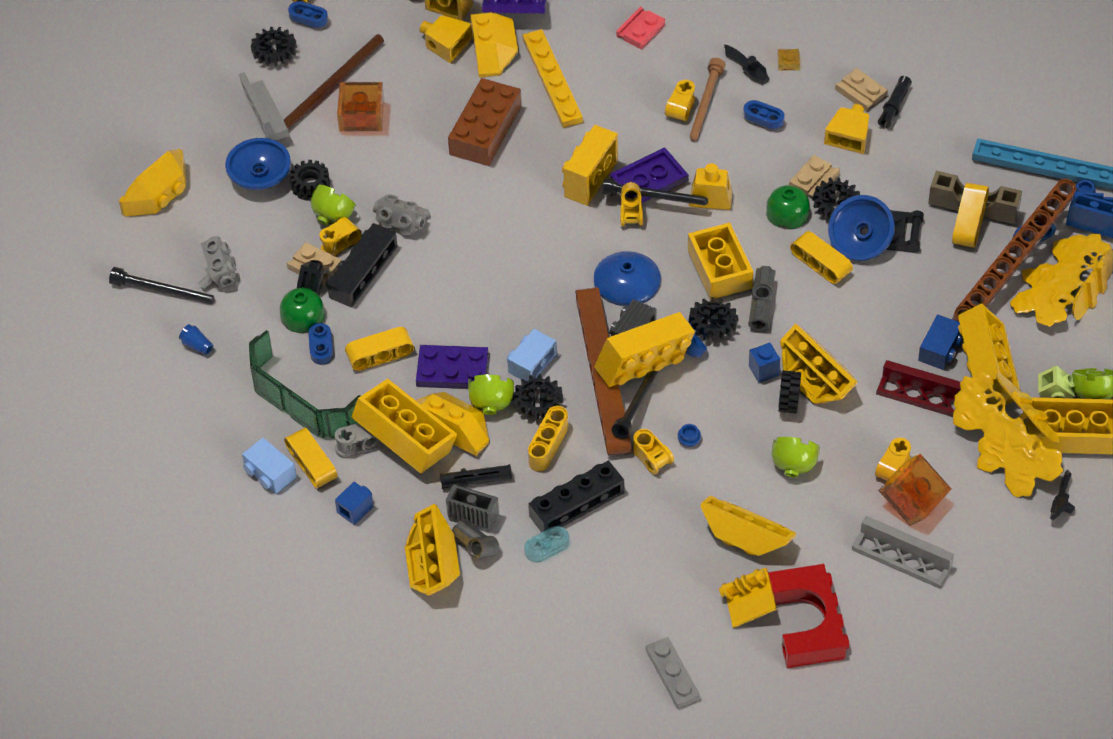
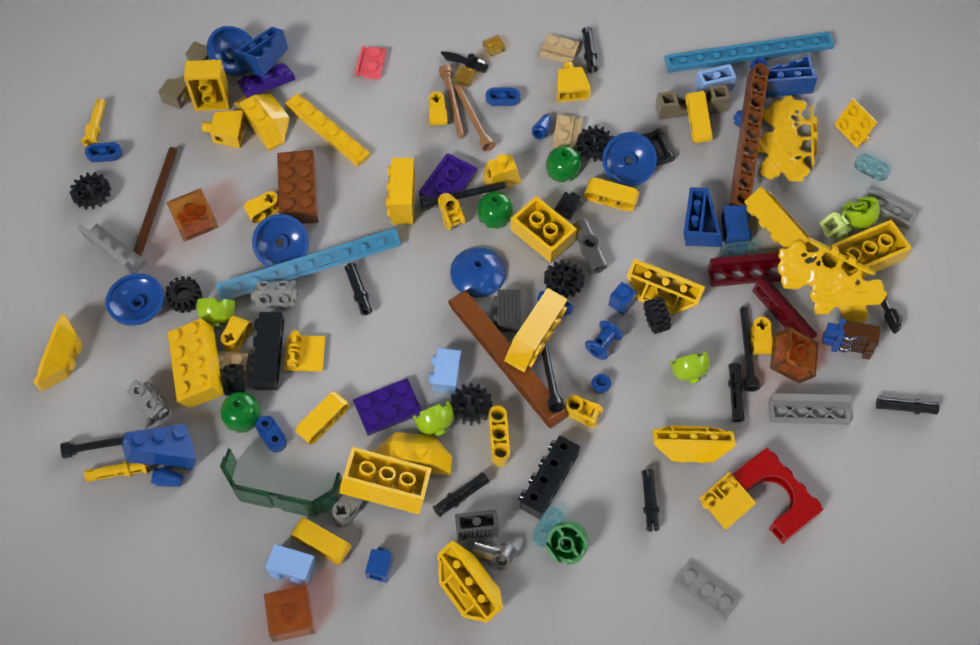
camera: 30 degrees left, 10 degrees up
(162, 315) = (111, 471): none -> yellow pin
(204, 304) = (160, 445): none -> blue wedge
(242, 506) = (289, 613): none -> clear orange brick
(282, 245) = (195, 363): none -> yellow brick
(398, 282) = (304, 352): none -> yellow hinge
(426, 153) = (279, 227): none -> blue dish
(435, 126) = (261, 207): none -> yellow piece
(458, 200) = (310, 263): none -> dark azure plate
(487, 250) = (360, 294): none -> black pin
(553, 559) = (567, 542): none -> green cylinder
(665, 570) = (651, 508): none -> black pin
(680, 220) = (495, 209): none -> green cylinder
(716, 153) = (486, 142): none -> medium nougat piece
(716, 393) = (599, 346): none -> blue hose
(734, 78) = (464, 76): none -> clear yellow plate
(765, 249) = (568, 205): none -> black bracket
(785, 162) = (541, 127): none -> blue cone
(835, 495) = (735, 384): none -> black pin
(854, 500) = (751, 382): none -> black piece
(902, 318) = (701, 222): none -> blue wedge
(929, 365) = (738, 249): none -> clear light blue plate
(940, 445) = (781, 308): none -> dark red fence
(994, 500) = (852, 337): none -> hips
(1020, 179) = (715, 76): none -> light blue brick
(1025, 599) = (916, 406): none -> black pin

